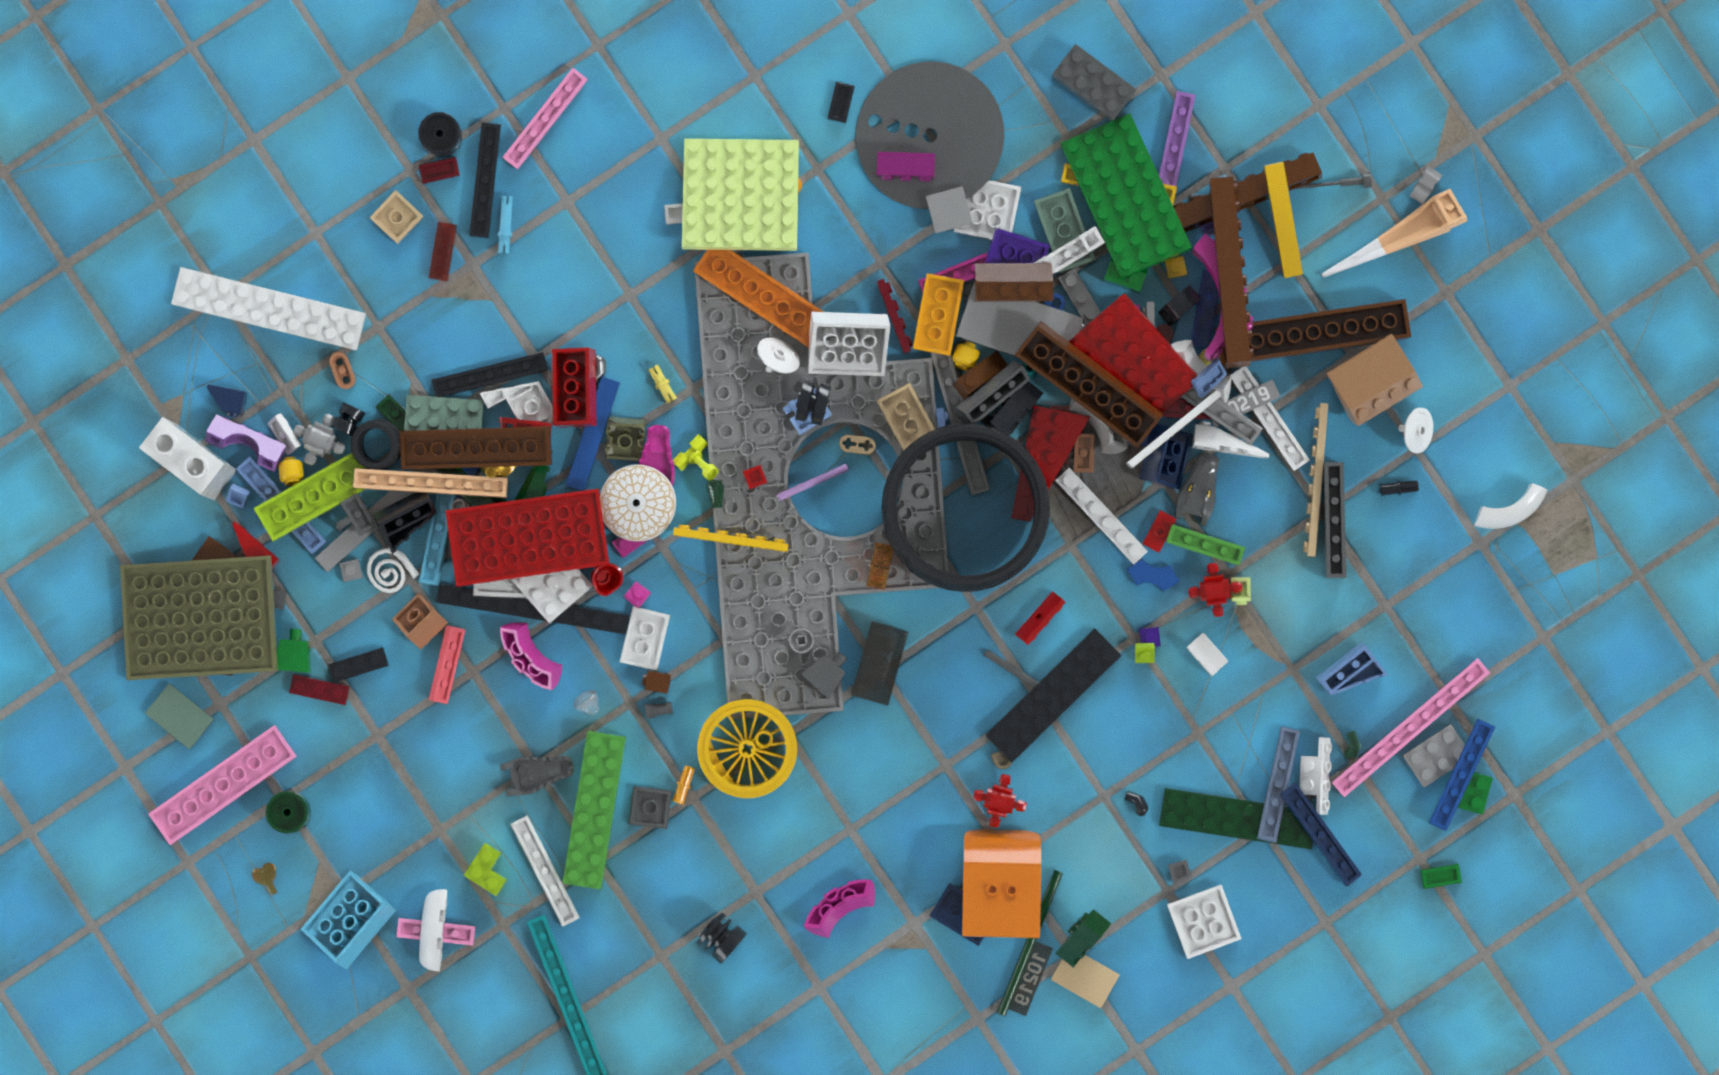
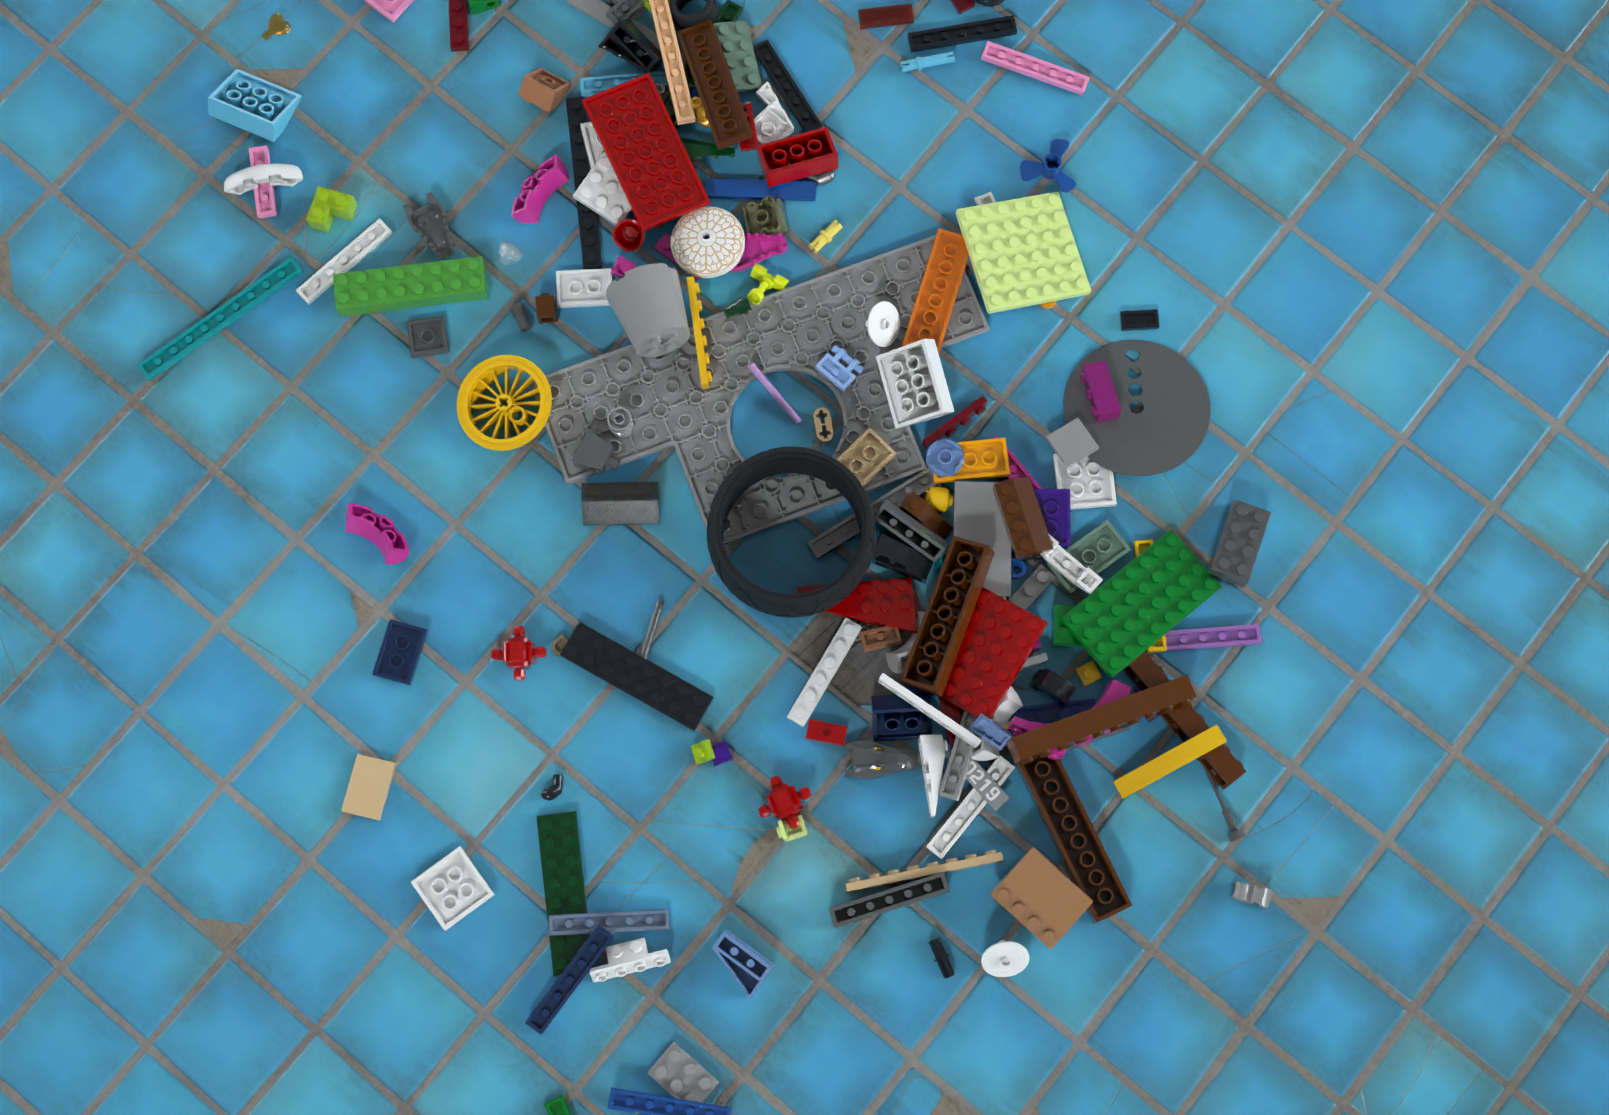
camera: 70 degrees right, 10 degrees down
(299, 814) = (338, 25): dark green wheel -> none
(351, 570) = (574, 21): light grey plate -> none
(358, 665) = (490, 51): black plate -> none
(386, 572) = (580, 50): white piece -> none
(446, 664) = (511, 122): coral plate -> none
(654, 156) = (1033, 169): none -> blue piece
(683, 784) = (456, 359): light orange axle -> none
(701, 578) = (650, 309): none -> light grey cone
(721, 937) = (319, 428): black wheel -> none
(755, 477) = (763, 338): red plate -> none
(813, 402) = (848, 363): black wheel -> none
(879, 566) = (710, 473): clear orange slope -> none
(930, 338) = (944, 458): none -> medium blue tile
(942, 418) = (874, 492): medium blue plate -> none
(1001, 884) = (434, 672): orange door -> none
(1028, 946) = (388, 724): dark green piece -> none
(1030, 978) = (354, 735): clear smoke sticker -> none
(1040, 618) = (707, 642): red tile -> none
(1082, 936) = (405, 770): dark green wedge -> none
(1144, 573) = (782, 748): blue tile -> none
(1166, 331) = (1021, 681): clear red tile -> none
(1179, 871) = (496, 849): flat silver plate -> none
(1205, 544) = (826, 780): bright green plate -> none
(1207, 654) = (719, 814): white panel -> none
(1354, 745) = (669, 989): clear green arm -> none
(1410, 727) = (704, 1041): bright pink plate -> none
(1428, 221) = (1216, 907): light nougat plate -> none
(1504, 517) = (951, 1084): white brick -> none

